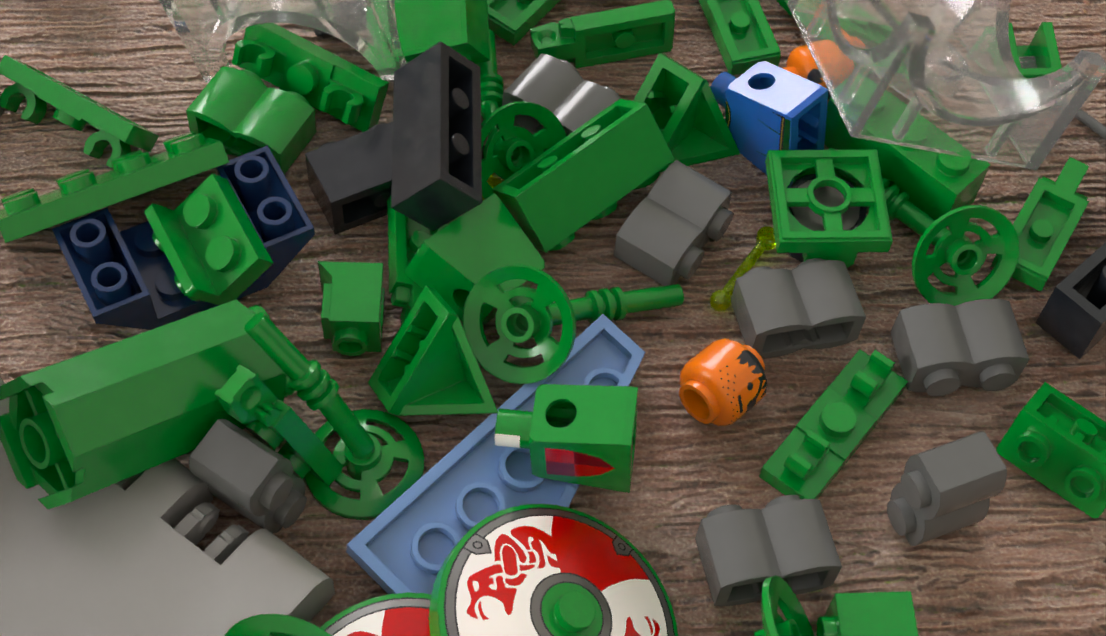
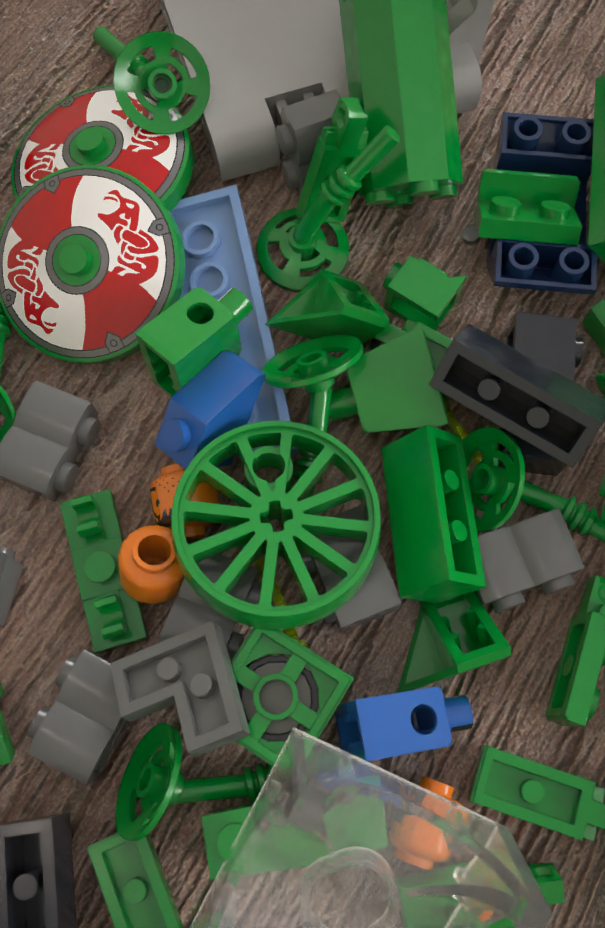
camera: 130 degrees right, 15 degrees up
(666, 385) = (209, 406): none -> blue slope
(694, 266) = (279, 501): none -> green piece
(802, 364) = (149, 565): none -> orange head
(868, 254) = (192, 674): none -> dark grey plate

